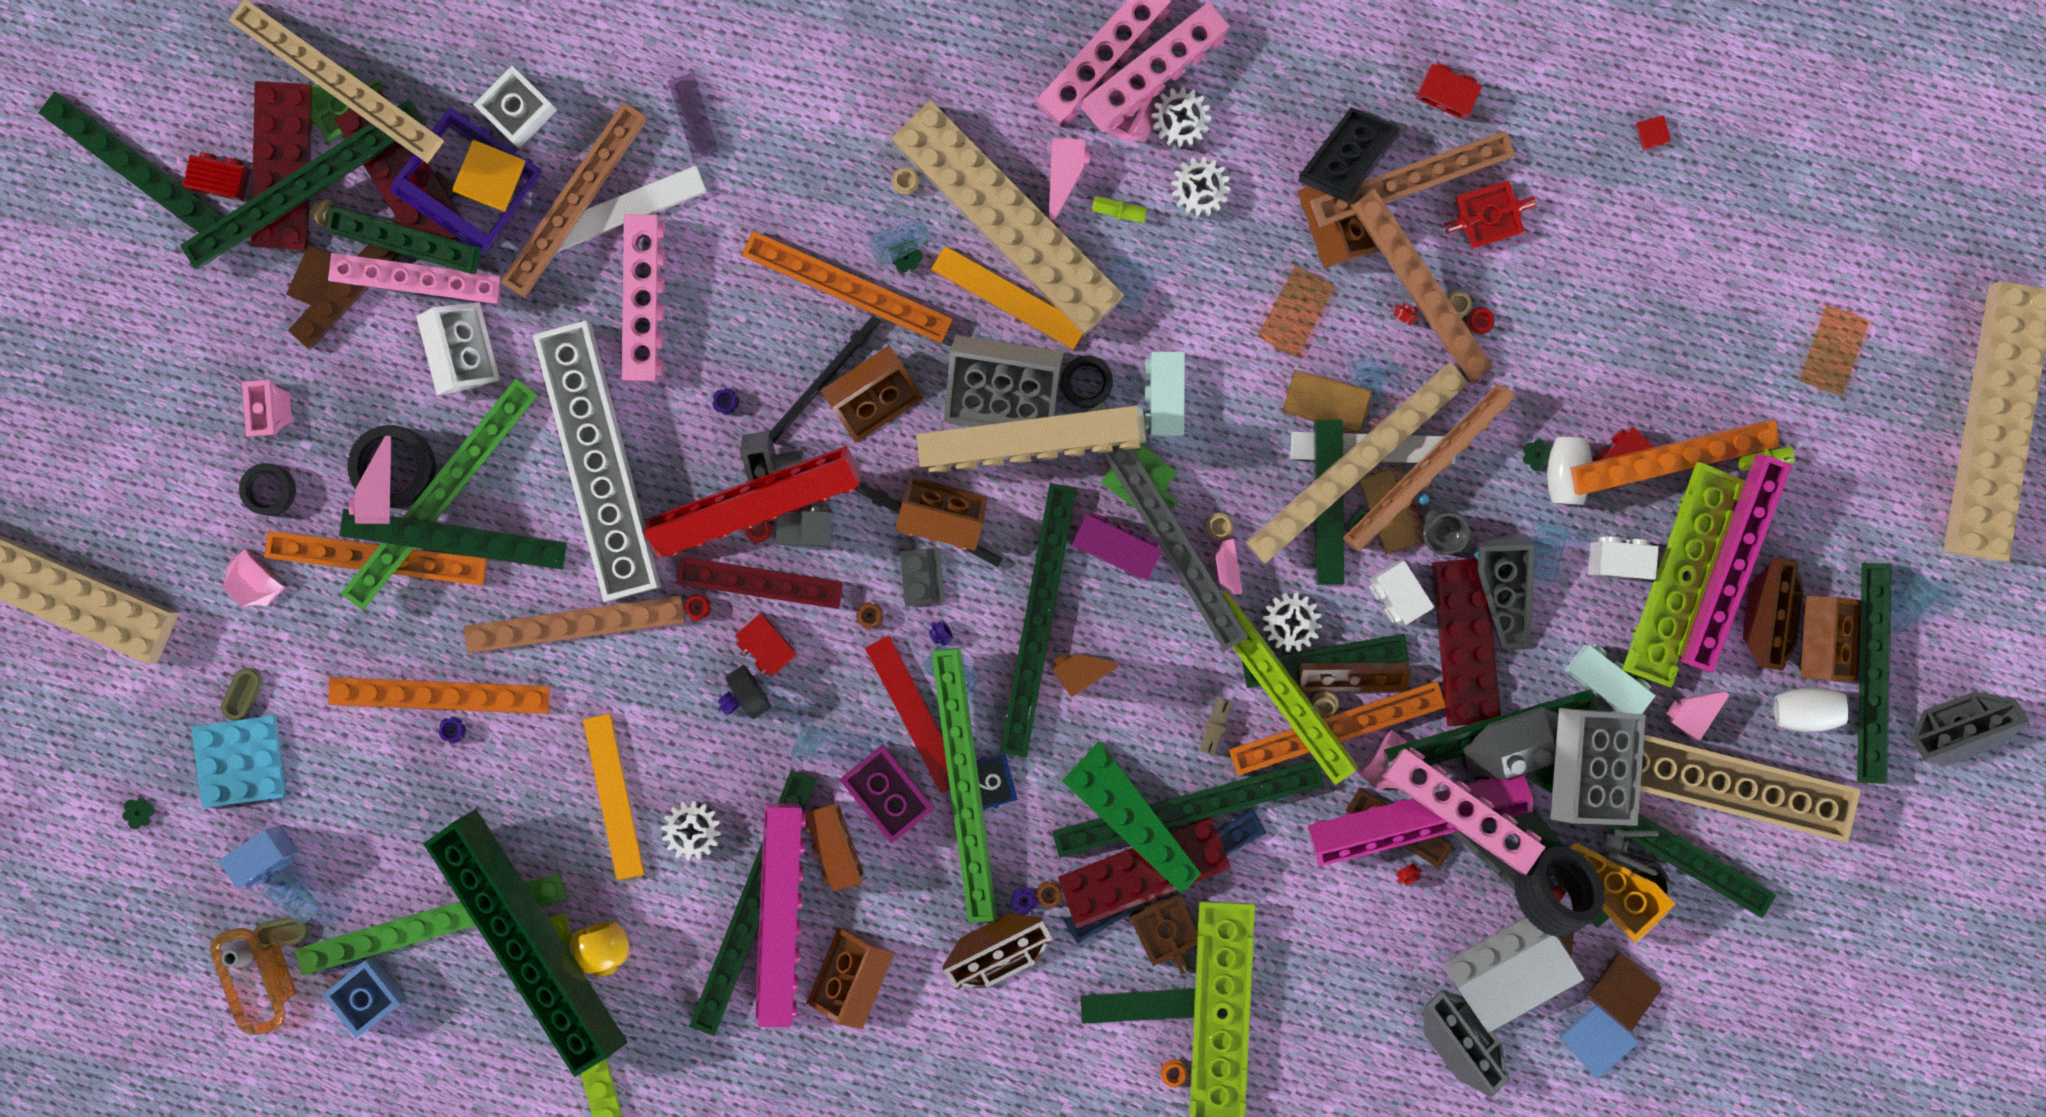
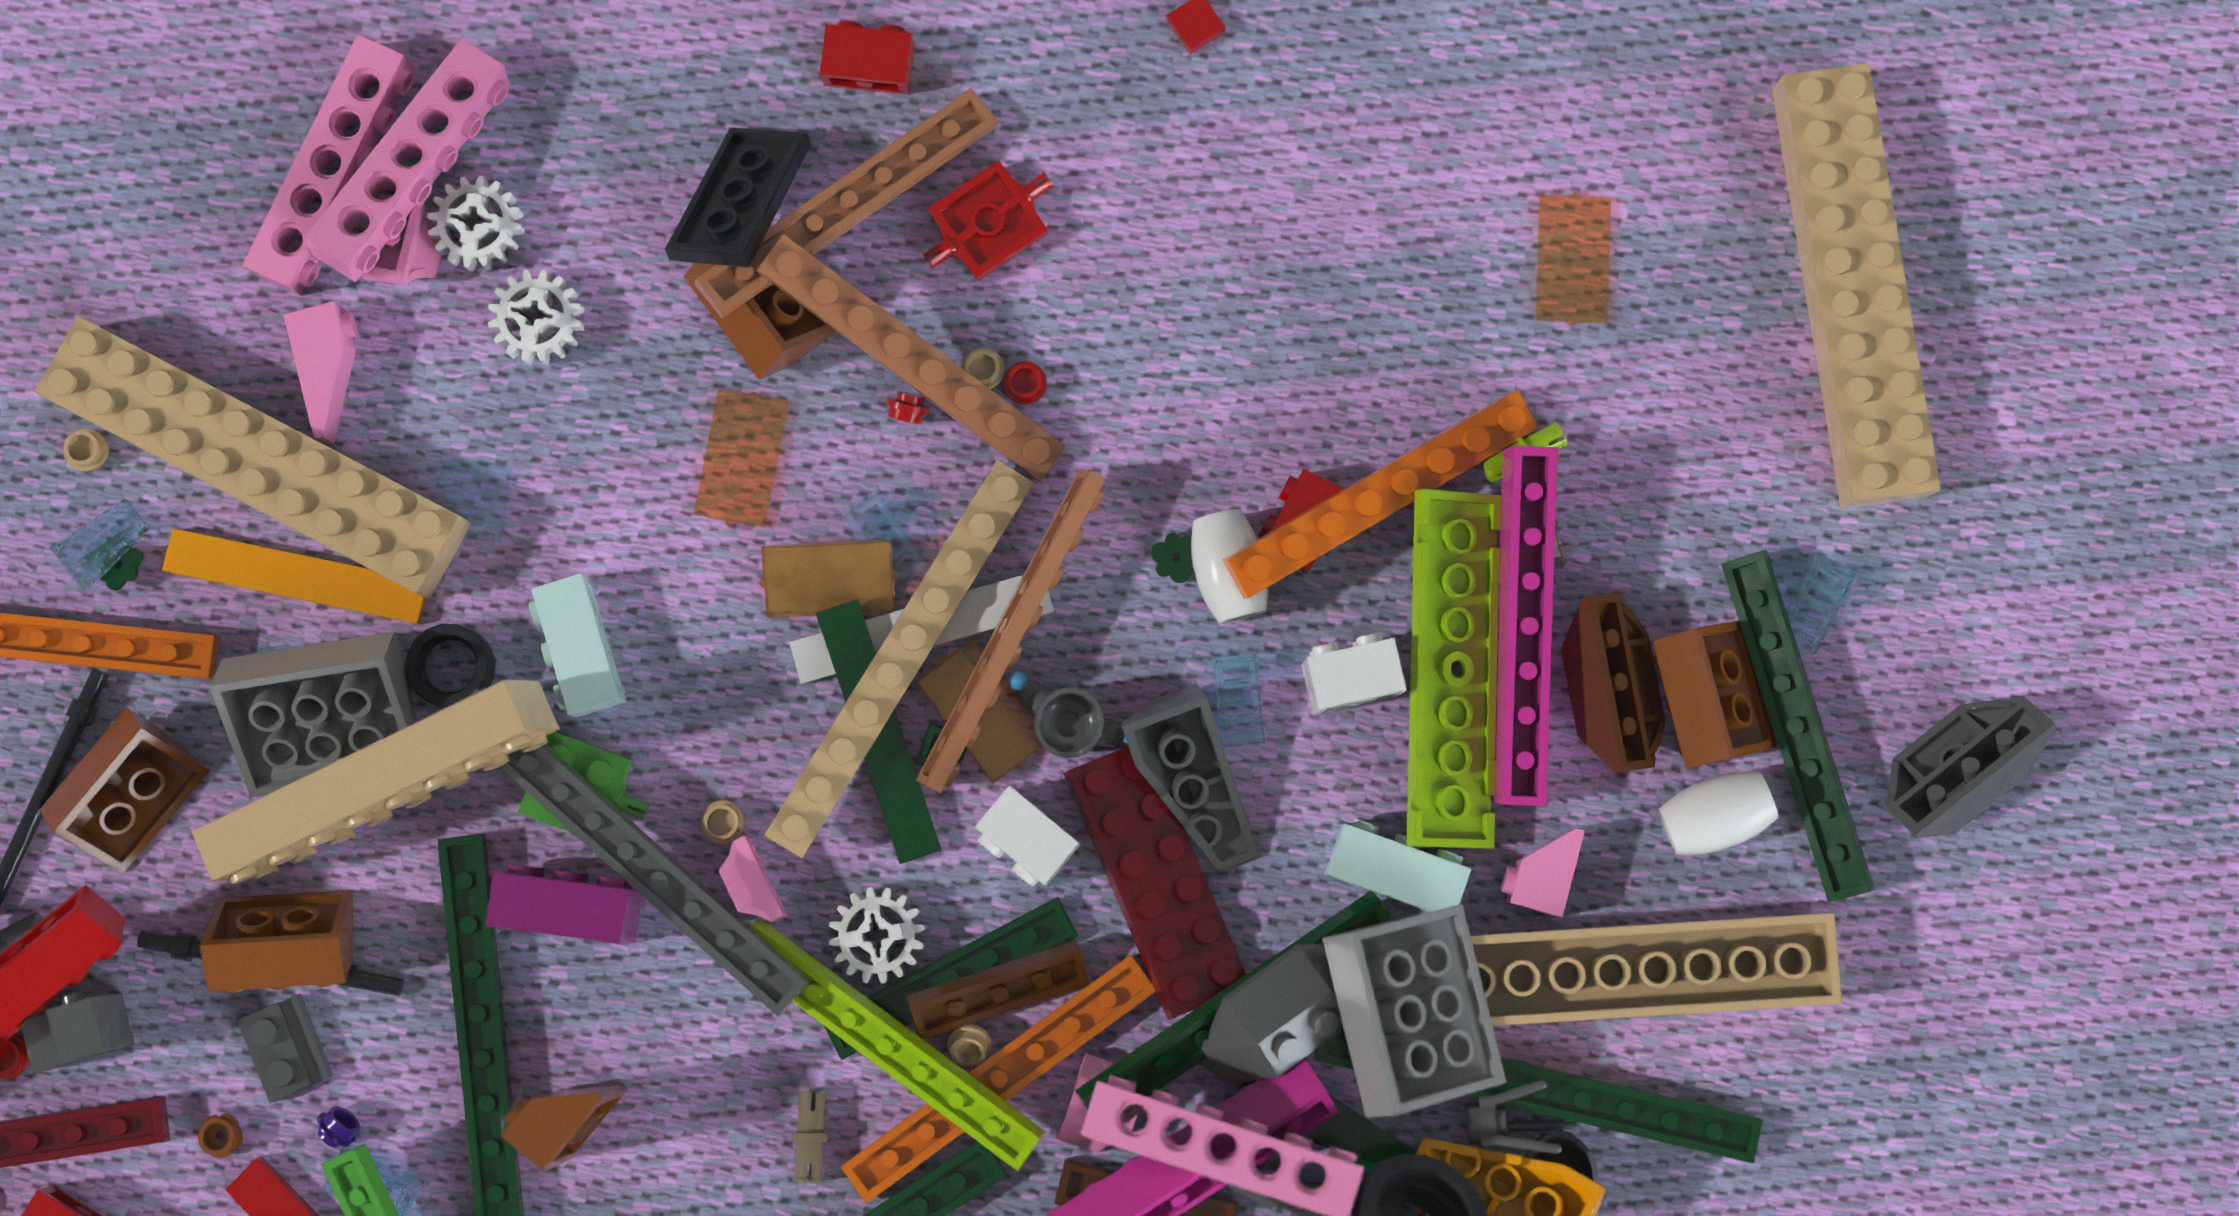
camera: 15 degrees left, 5 degrees down
(1119, 209) = (425, 389): lime axle -> none

